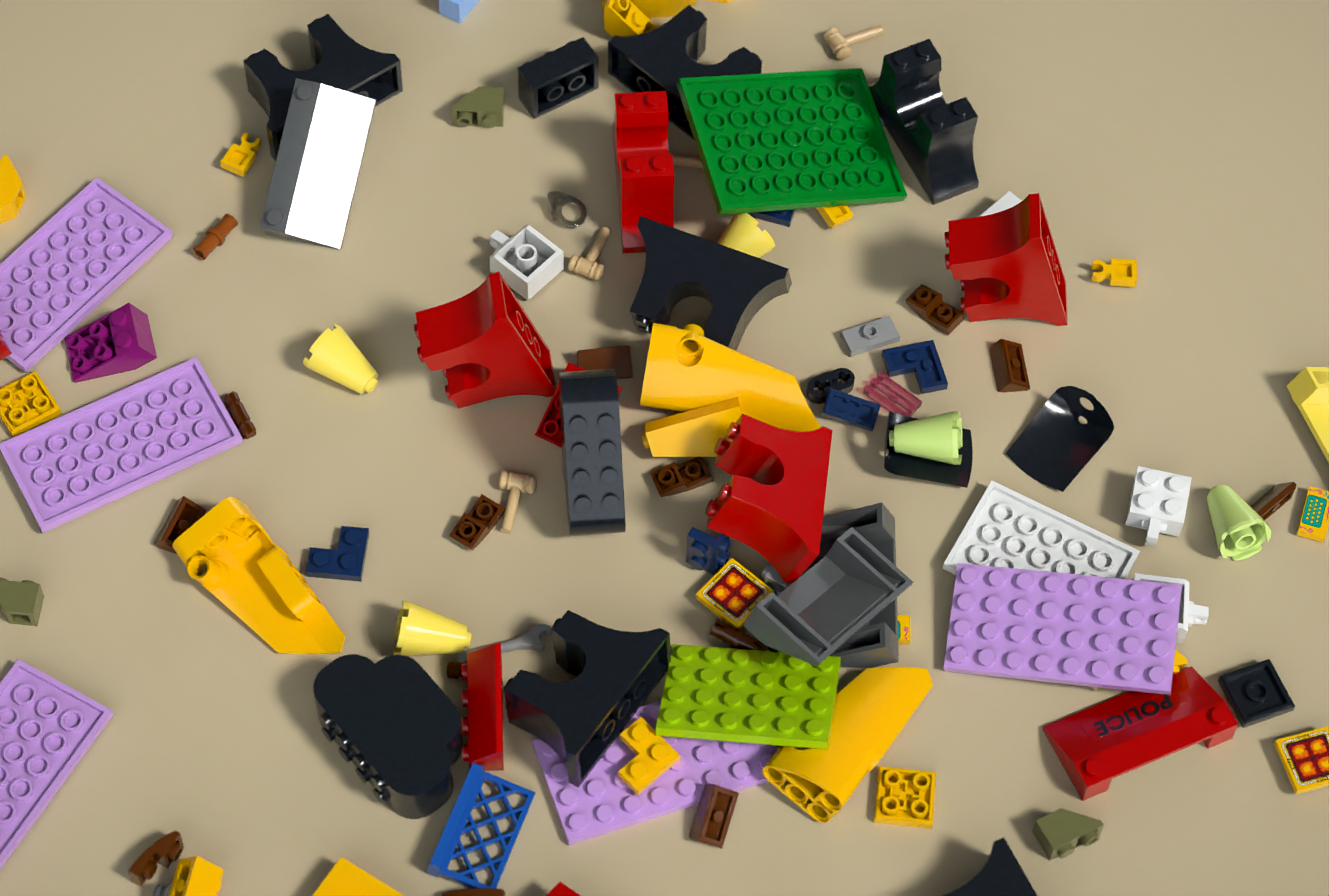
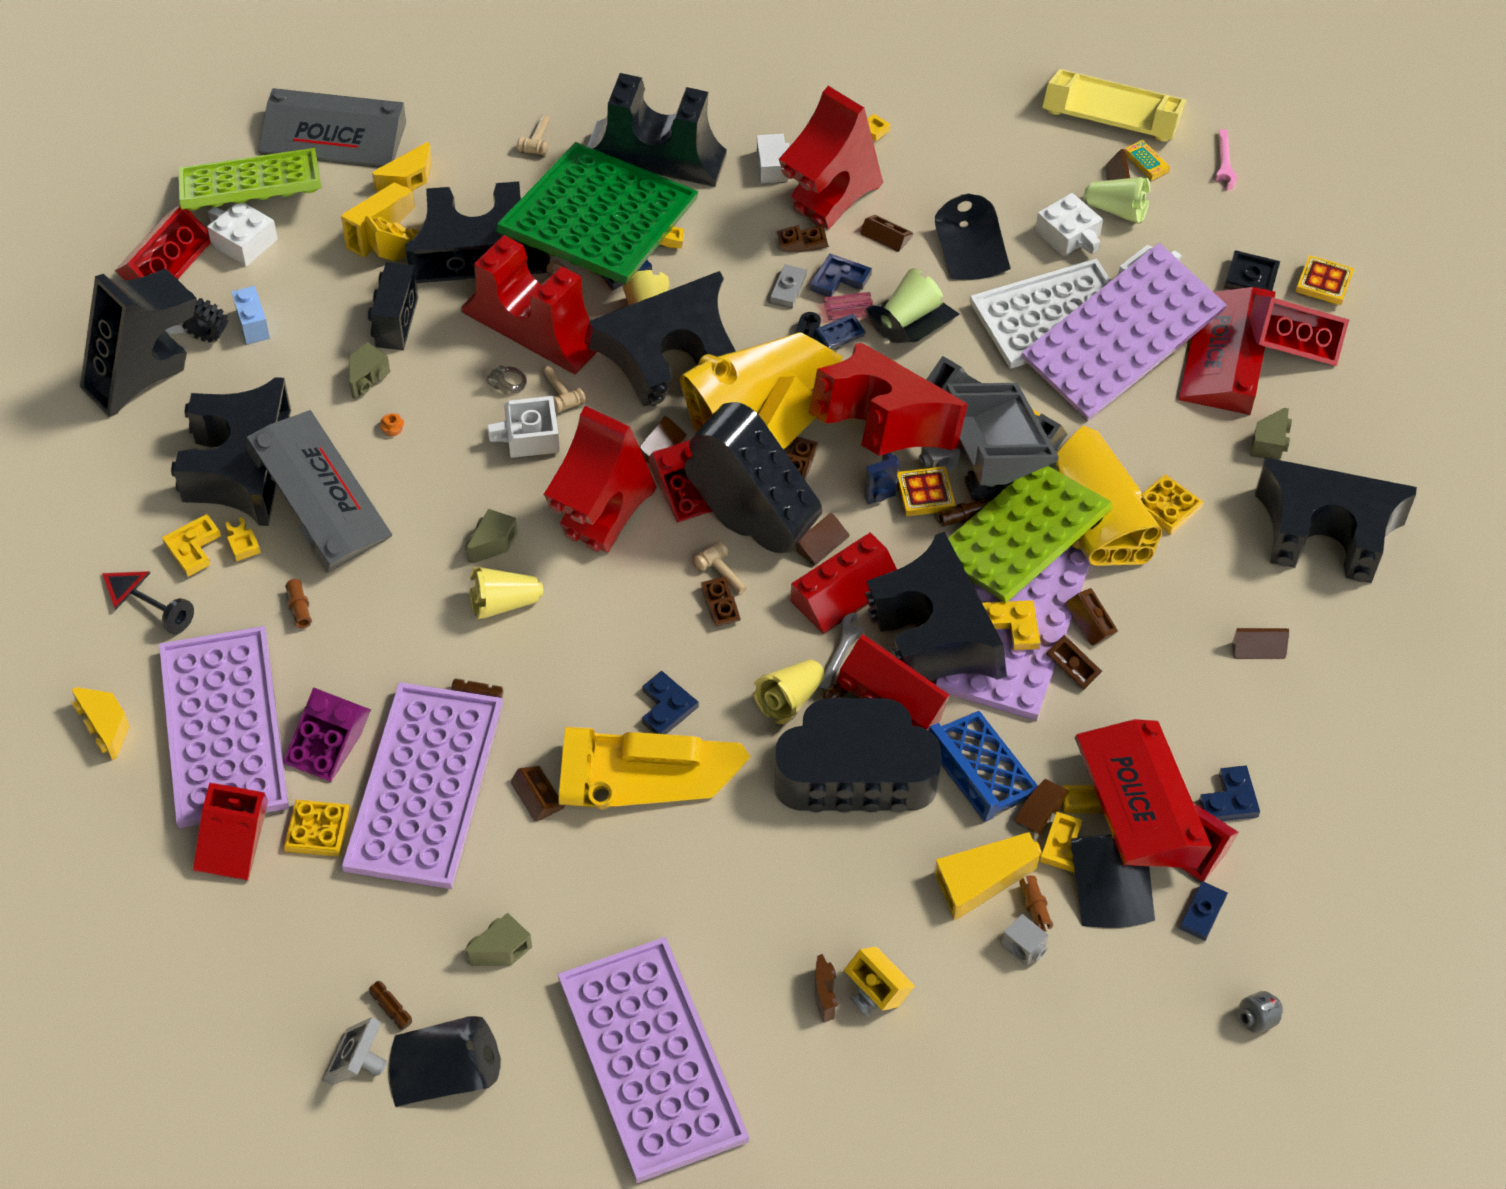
camera: 50 degrees left, 5 degrees down
(132, 167) = (176, 614): none -> black piece
(207, 121) = (187, 541): none -> yellow plate
(392, 315) = (492, 536): none -> olive slope
(447, 172) = (392, 424): none -> orange plate
(554, 588) = (840, 582): none -> red slope
(611, 552) = (822, 539): none -> reddish brown slope
(649, 832) = (1074, 662): none -> reddish brown slope
(1205, 772) = (1297, 329): none -> red slope

